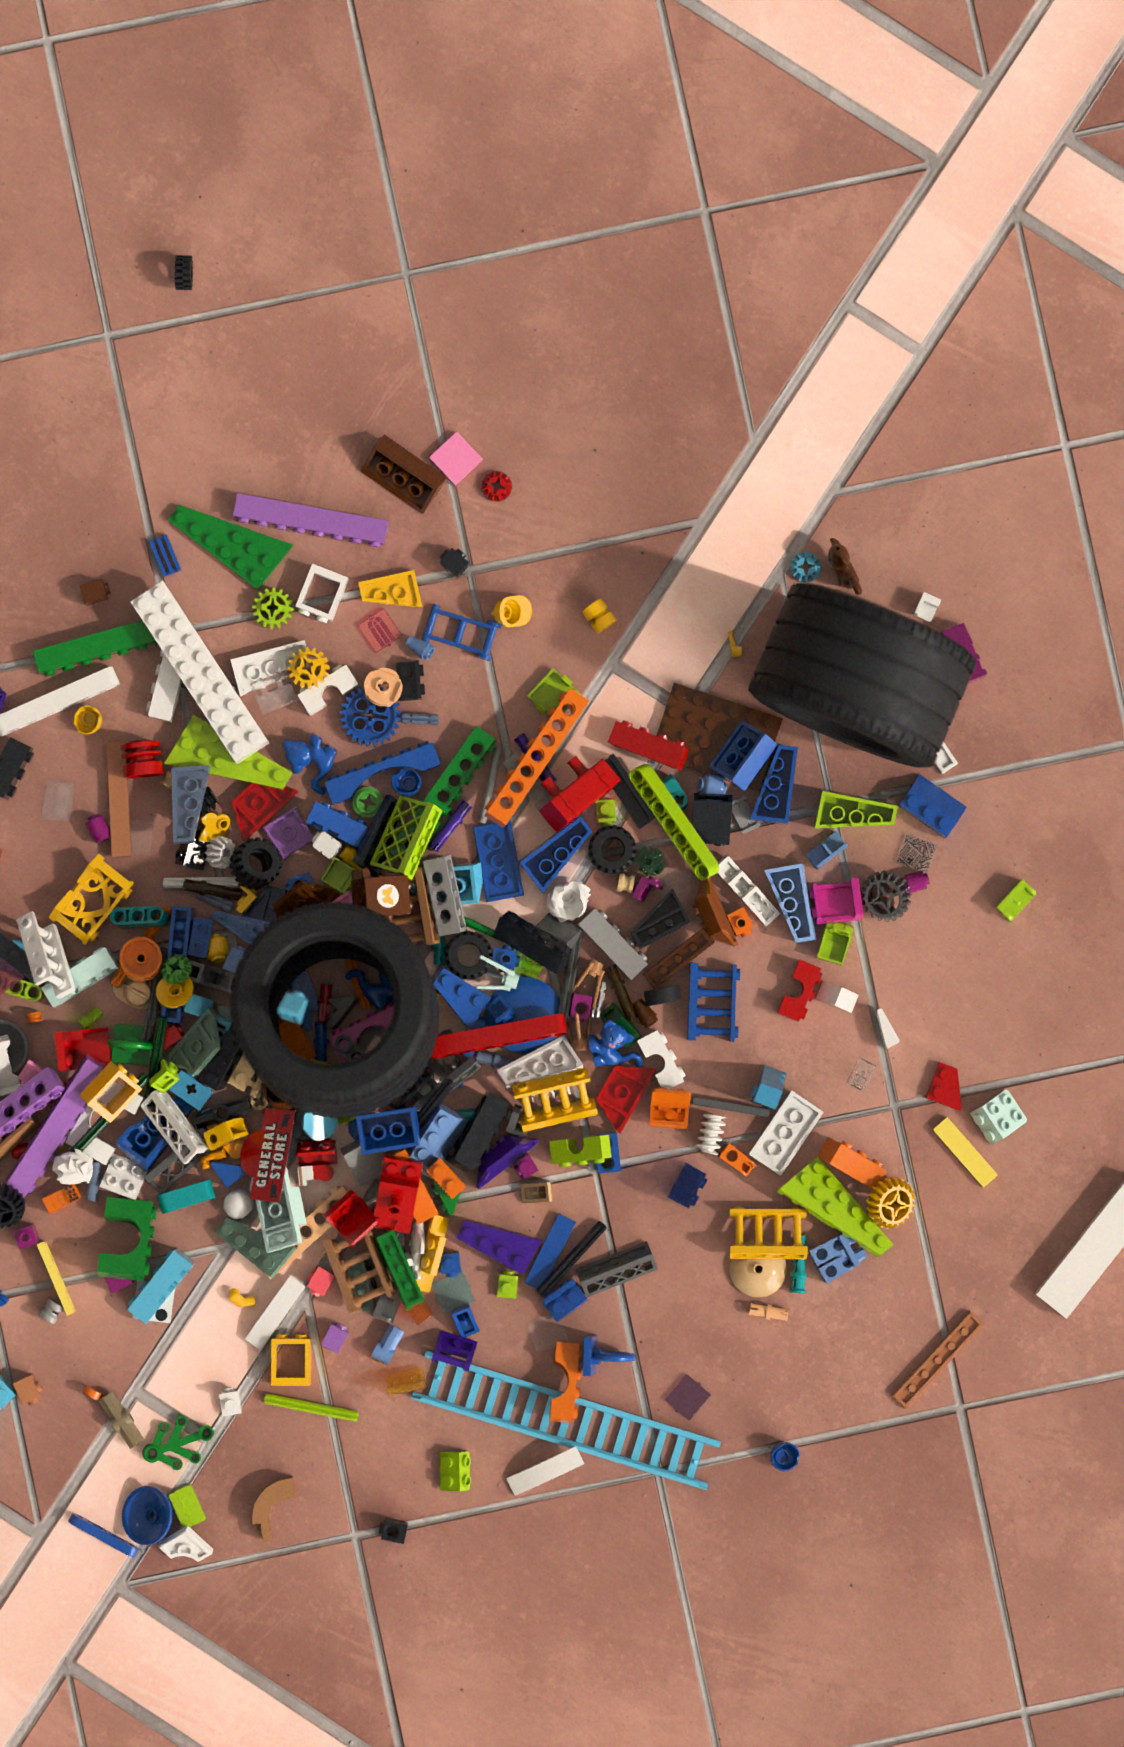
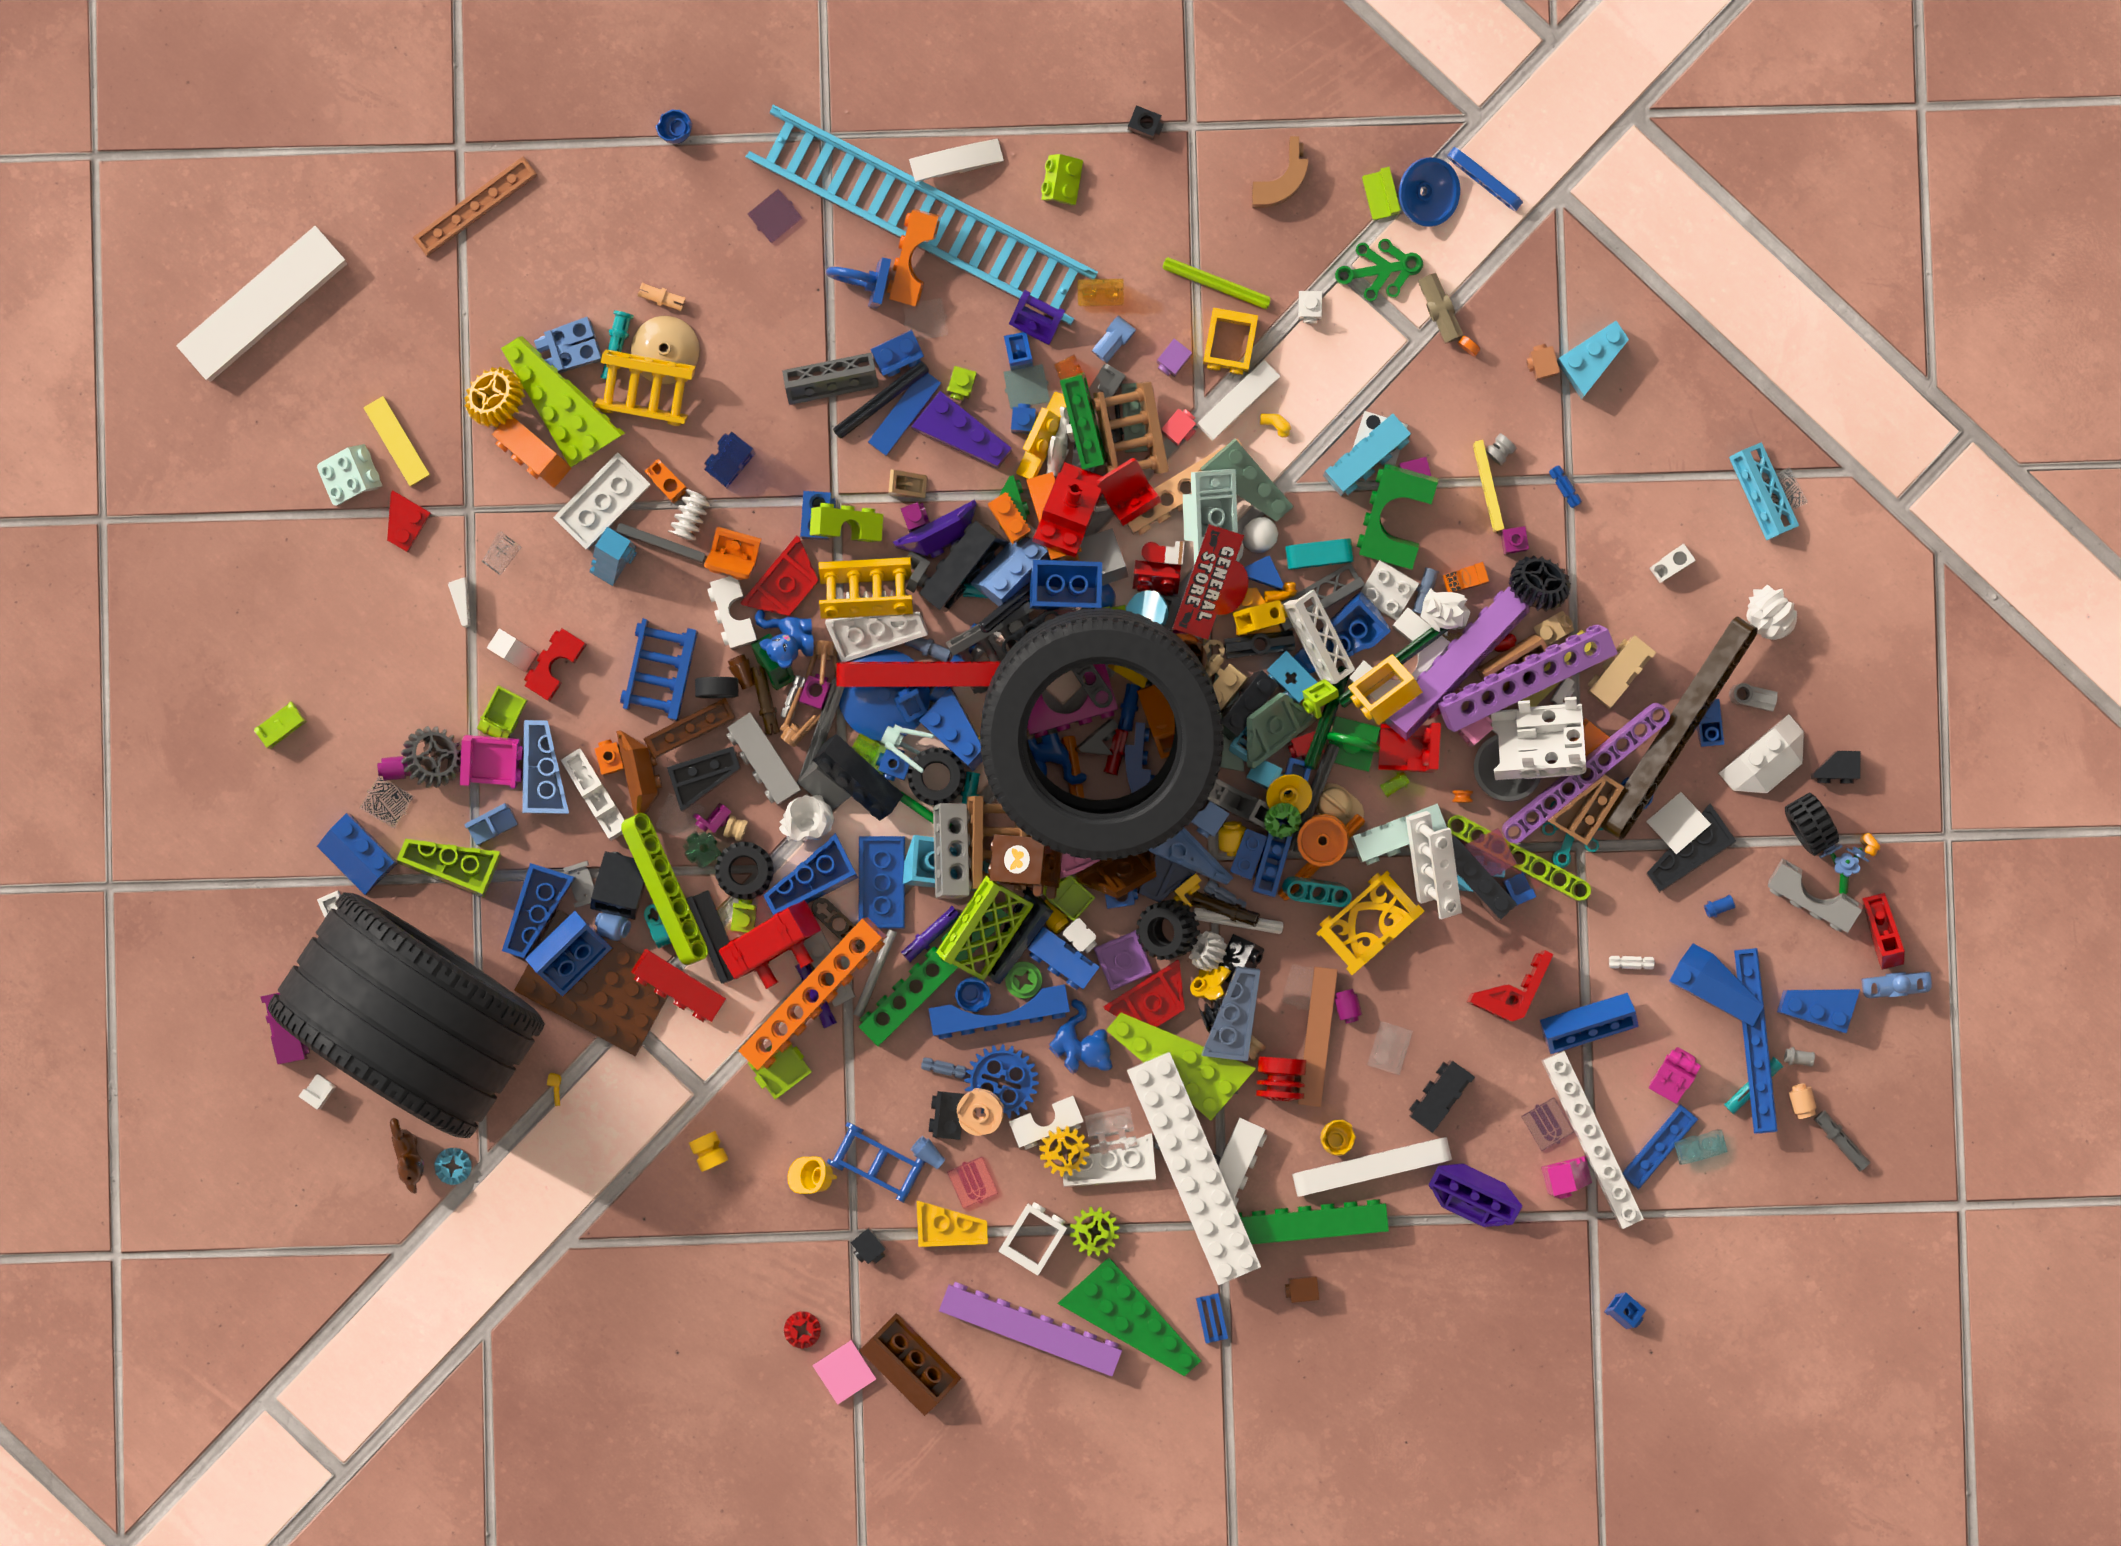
camera: 165 degrees left, 0 degrees up
(185, 1543) = (1390, 151): white tile -> none
(293, 1007) = (1146, 739): medium azure slope -> none
(542, 823) = (830, 908): none -> dark brown beam

